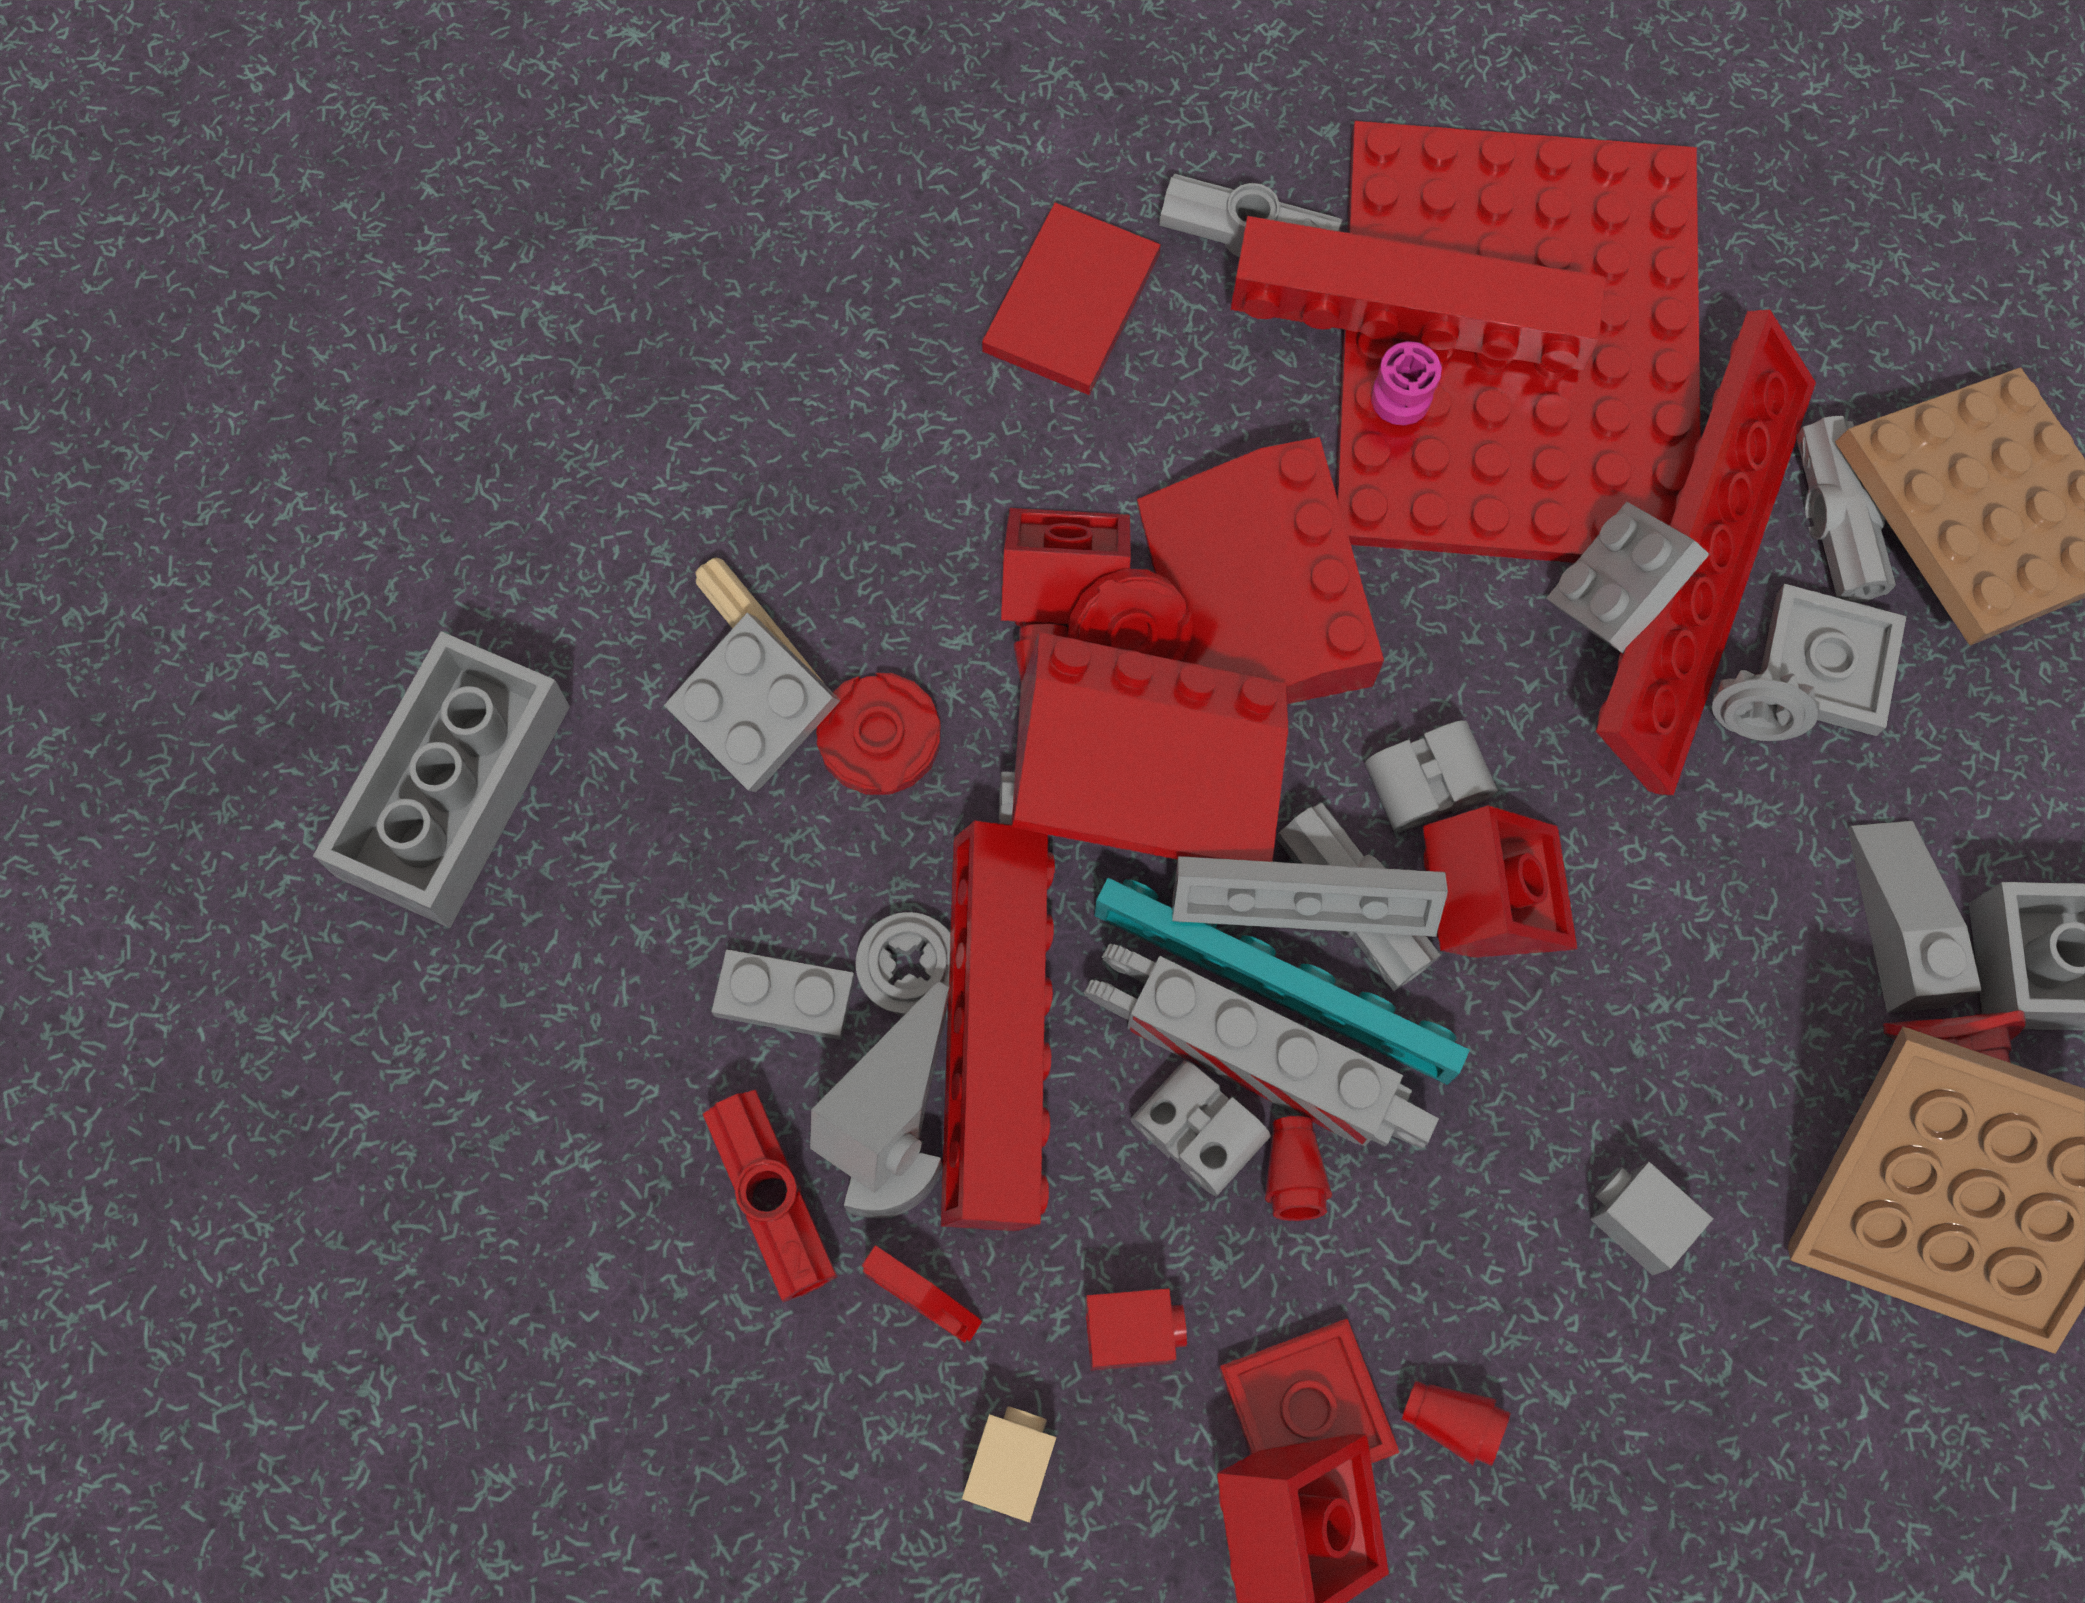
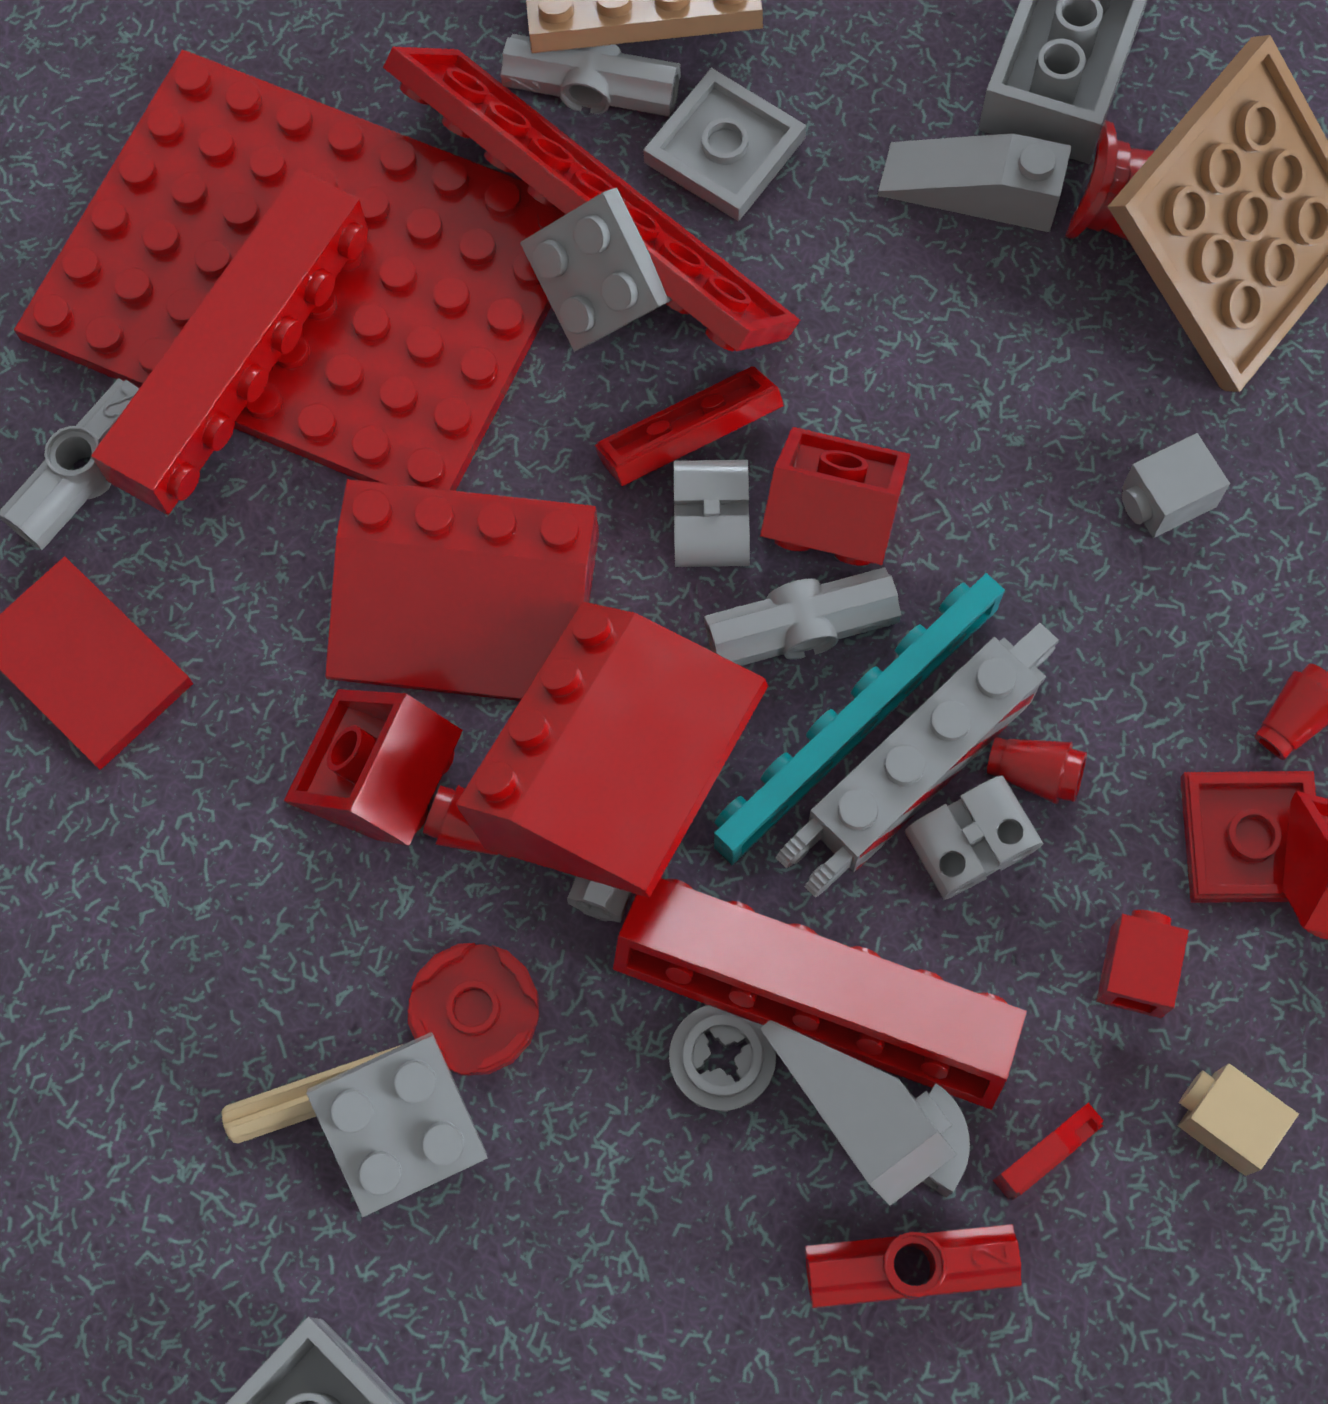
camera: 65 degrees left, 0 degrees up
(783, 994) = (710, 1190): light grey plate -> none
(1134, 613) = (460, 718): red tile -> none
(1308, 896) = (802, 657): light grey plate -> none
(1396, 393) = (331, 395): dark pink wheel -> none
(1513, 726) = (688, 425): none -> red tile
(1748, 706) = (753, 209): light grey gear -> none

